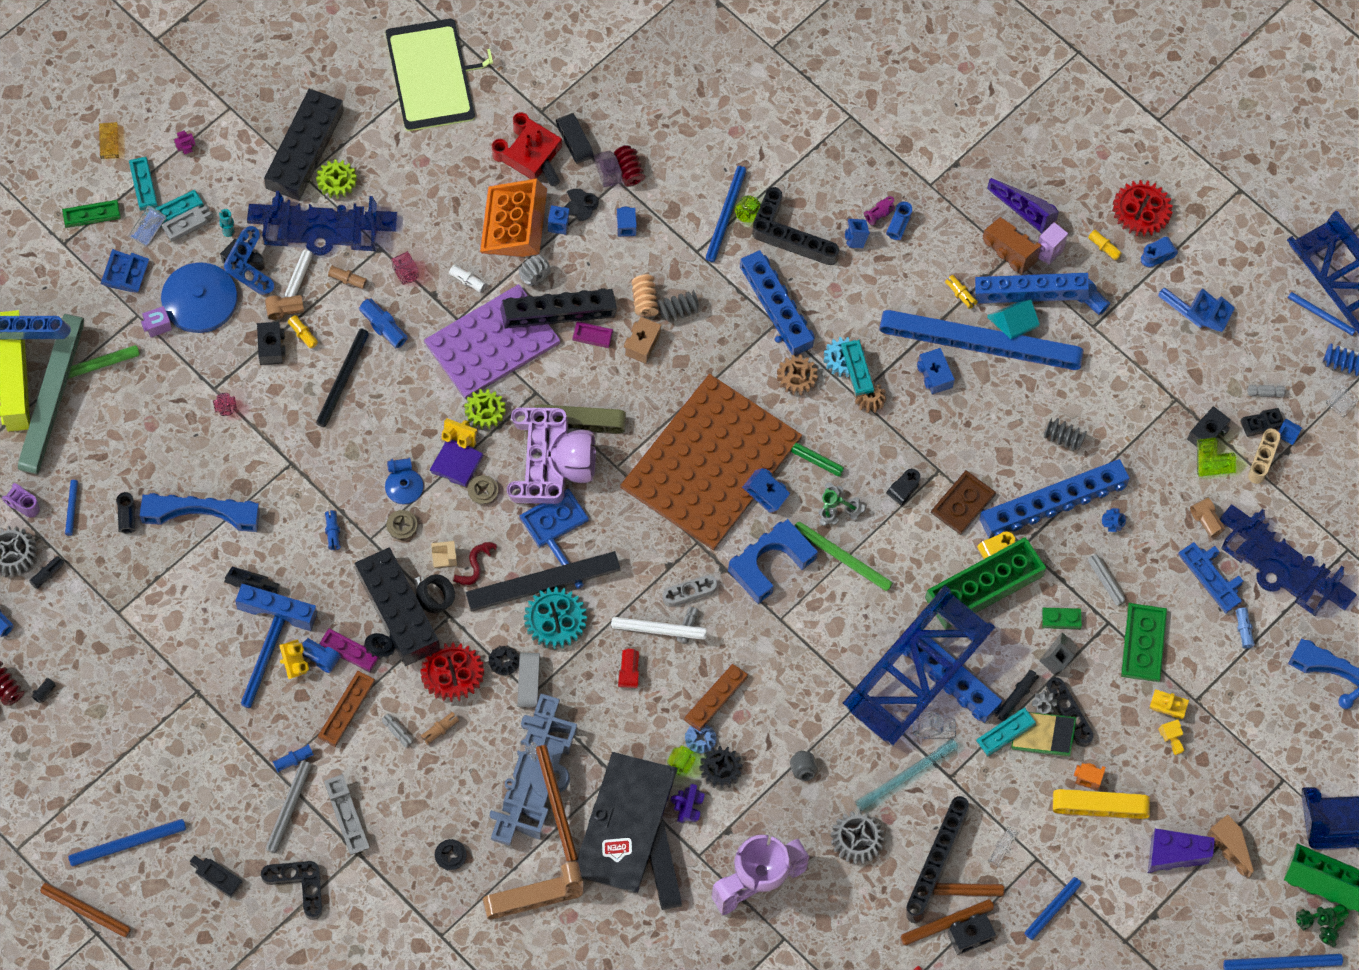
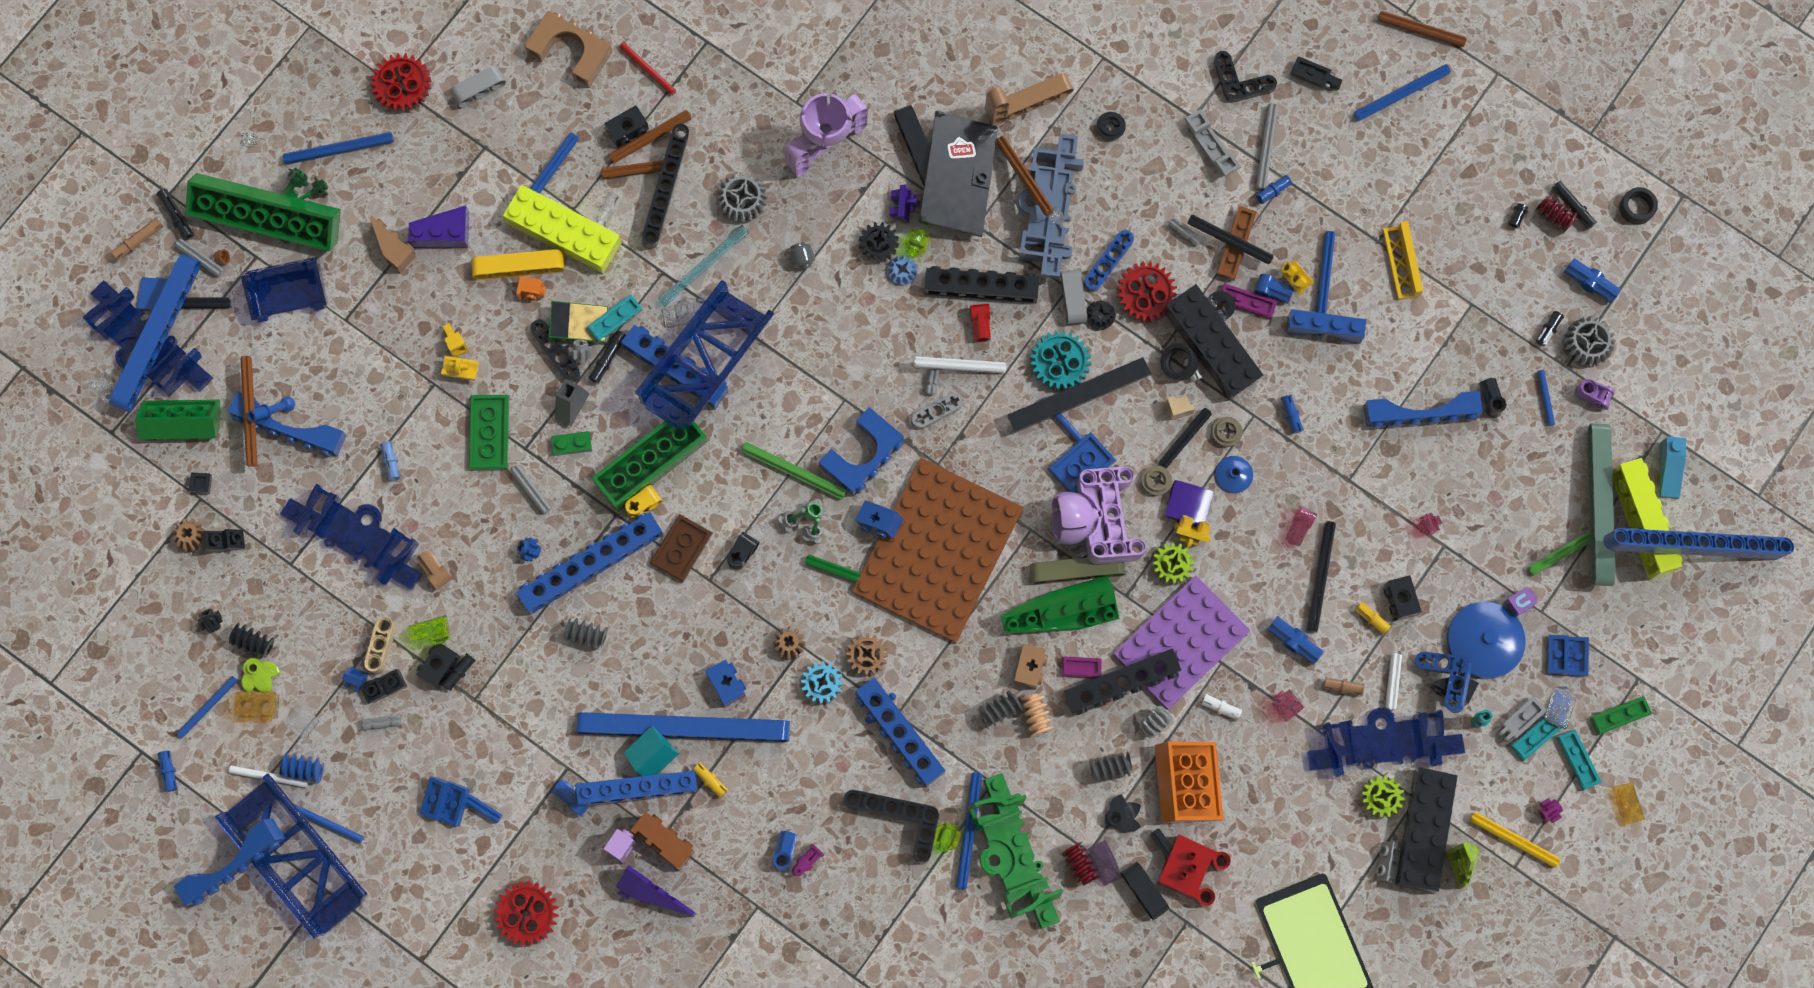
camera: 170 degrees right, 10 degrees up
(170, 664) = (1410, 261): none -> yellow fence
(223, 127) = (1515, 839): none -> yellow axle
(240, 576) = (1356, 349): black hinge -> none
(276, 111) = (1463, 862): none -> lime wedge
(278, 307) = (1403, 640): medium nougat piece -> none
(348, 428) = (1302, 522): none -> clear pink piece
(349, 121) = (1389, 853): none -> light grey hinge
(353, 707) = (1230, 239): none -> black axle
(399, 465) = (1244, 491): blue pin -> none
(439, 728) = (1146, 238): medium nougat pin -> none
(445, 525) = (1185, 437): none -> black axle
(469, 580) = (1142, 422): dark red animal -> none
(481, 711) = (1108, 260): none -> blue beam
(558, 220) = (1142, 787): blue brick -> none
(584, 241) = (1111, 766): none -> dark grey piece
(598, 385) = (1065, 609): none -> green wedge
(614, 697) = (973, 291): none -> black brick
(626, 221) = (1072, 800): blue brick -> none
(686, 178) = (1015, 853): none -> green piece
(716, 697) = (894, 307): dark orange plate -> none
(857, 233) = (828, 824): blue brick -> none
(857, 367) = (806, 664): teal tile -> none
(1051, 832) = (562, 229): none -> neon yellow brick
(1104, 244) = (563, 863): yellow axle -> none
(1158, 252) = (502, 865): blue piece -> none
(1190, 422) = (458, 672): none -> black pin
(1202, 567) = (437, 517): blue hinge -> none

